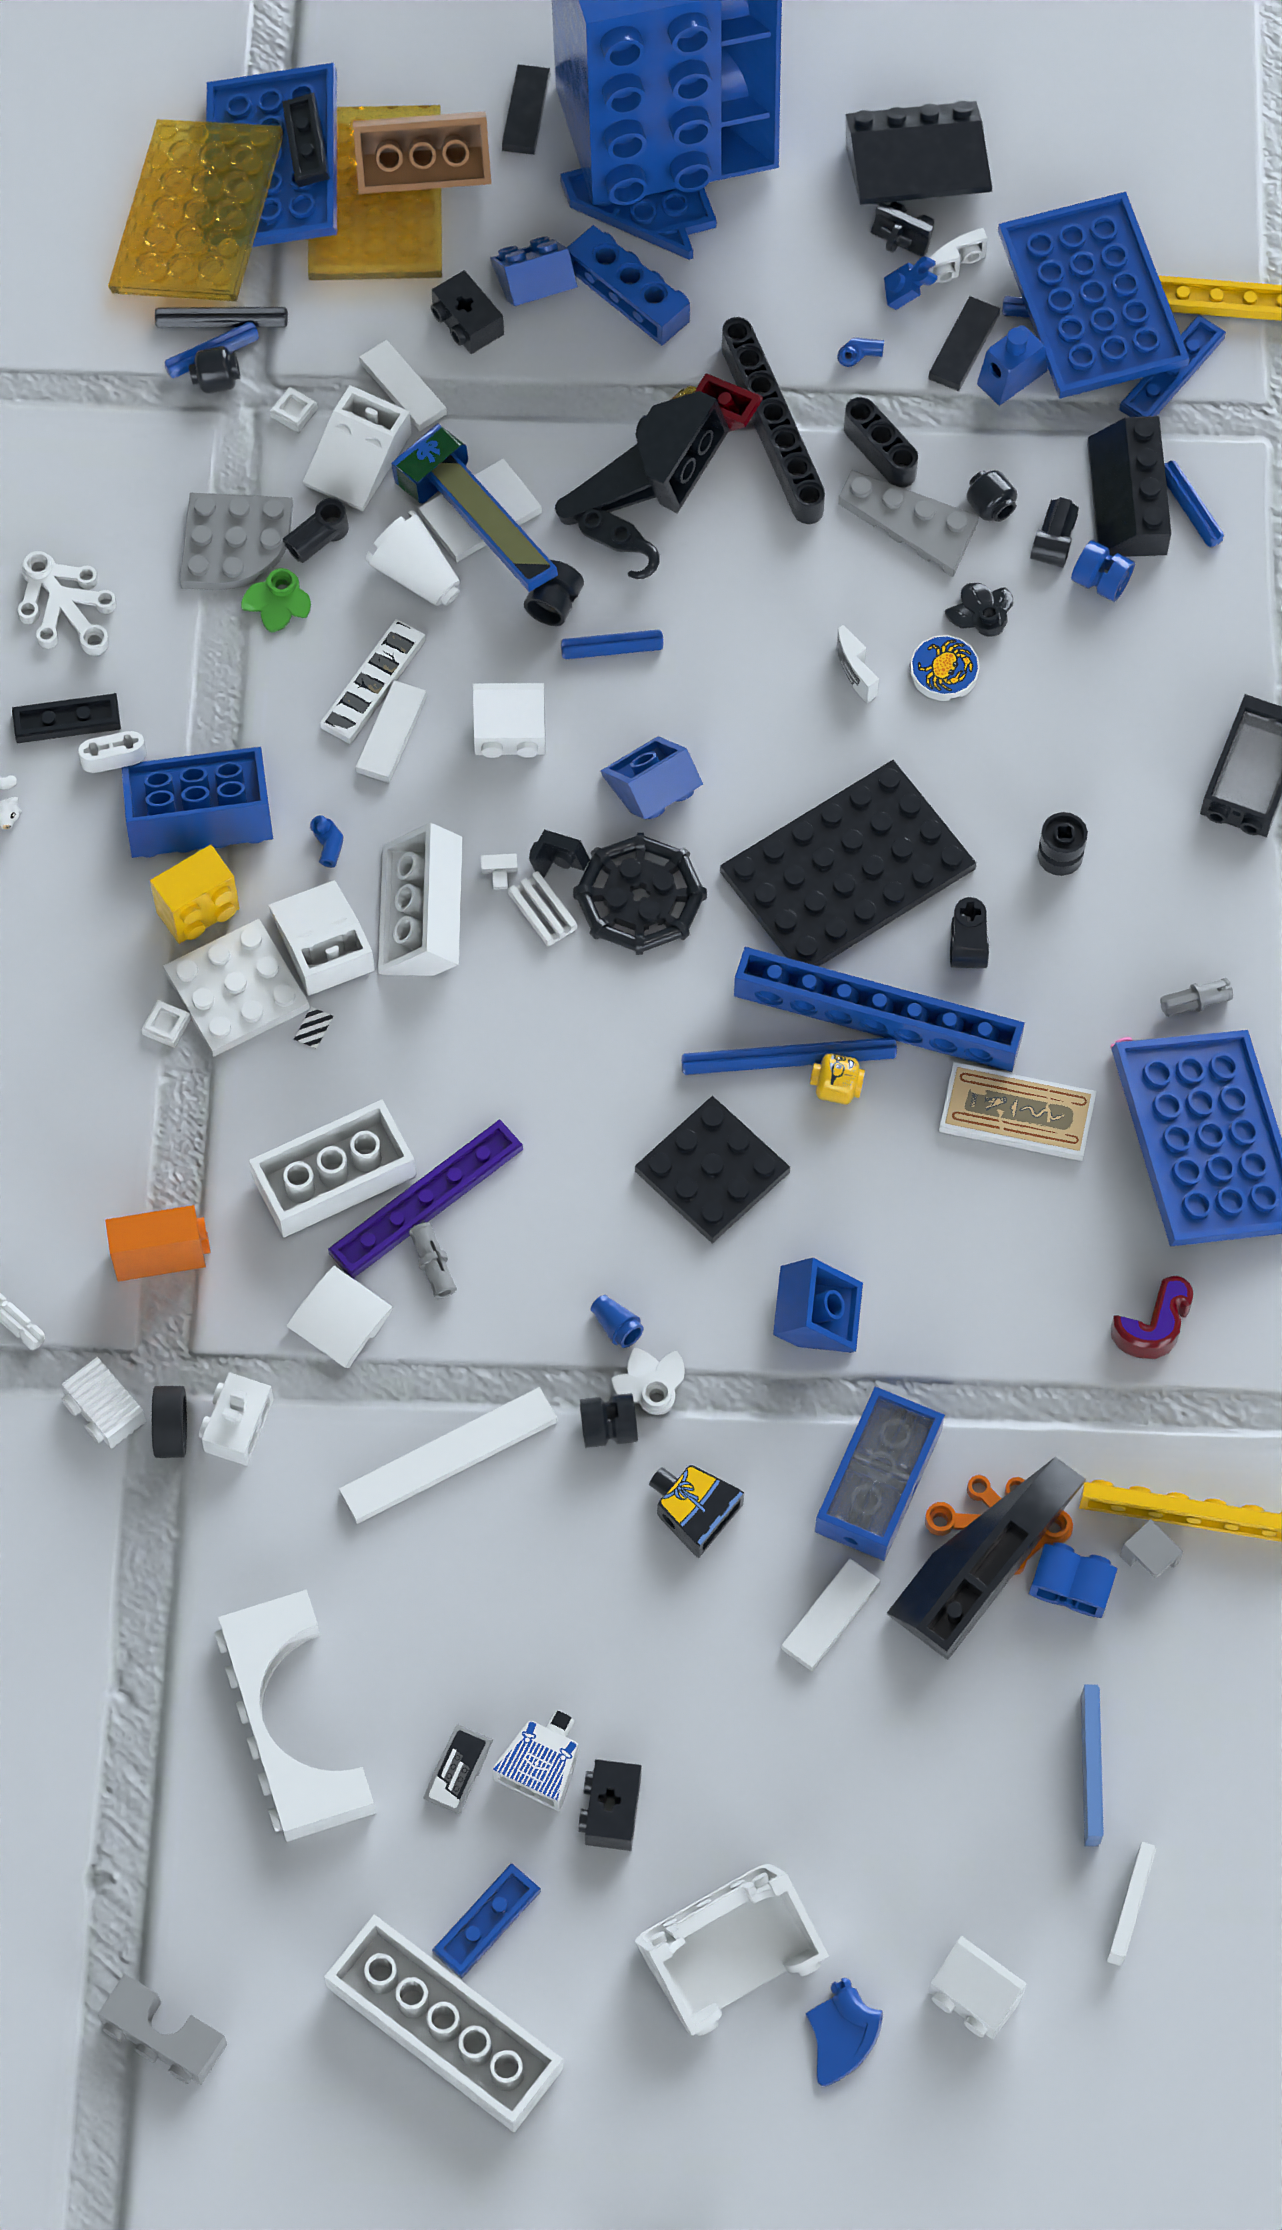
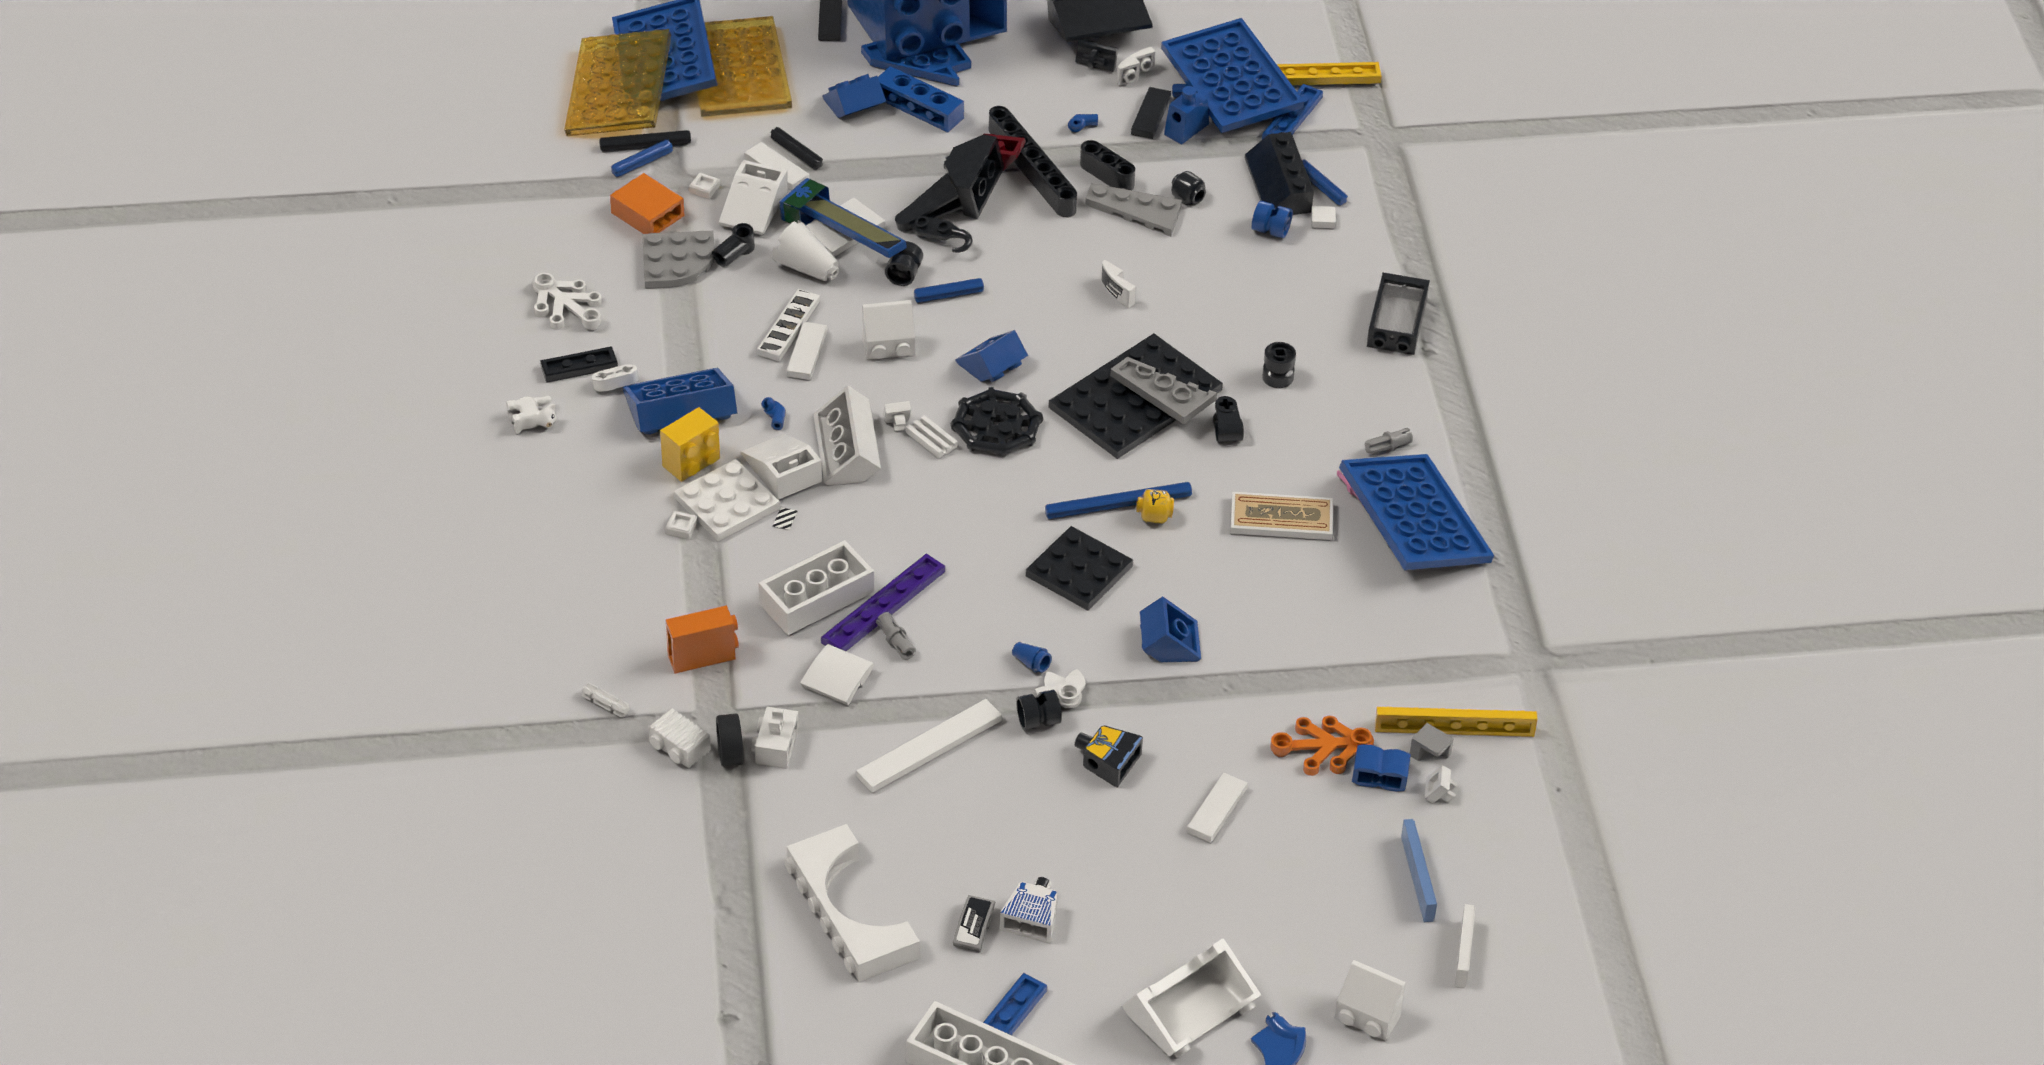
camera: 10 degrees left, 20 degrees down
(204, 441) = (647, 205): none -> orange brick
(215, 369) = (648, 163): black head -> none
(277, 604) = (713, 286): bright green plate -> none
(306, 140) = (687, 35): black tile -> none
(422, 152) = (767, 36): medium nougat slope -> none
(436, 354) = (796, 148): none -> black axle
(467, 312) = (813, 122): black brick -> none
(557, 848) = (937, 400): black bracket -> none
(615, 1827) = (1088, 929): black brick -> none
(878, 1009) = (1175, 464): blue brick -> none
(879, 1473) = (1234, 719): clear brick -> none
(885, 876) = (1163, 390): none -> light grey wing
(905, 282) = (1106, 81): blue plate -> none
(944, 667) = (1177, 282): tile -> none
(980, 1560) = (1314, 762): black wedge -> none
(981, 609) = (1196, 249): black plate -> none
(1054, 540) = (1235, 206): black piece -> none
(1148, 1621) = (1440, 785): none -> white tile
(1164, 1329) = (1407, 626): dark red animal -> none
(1181, 569) = (1323, 217): none -> white tile

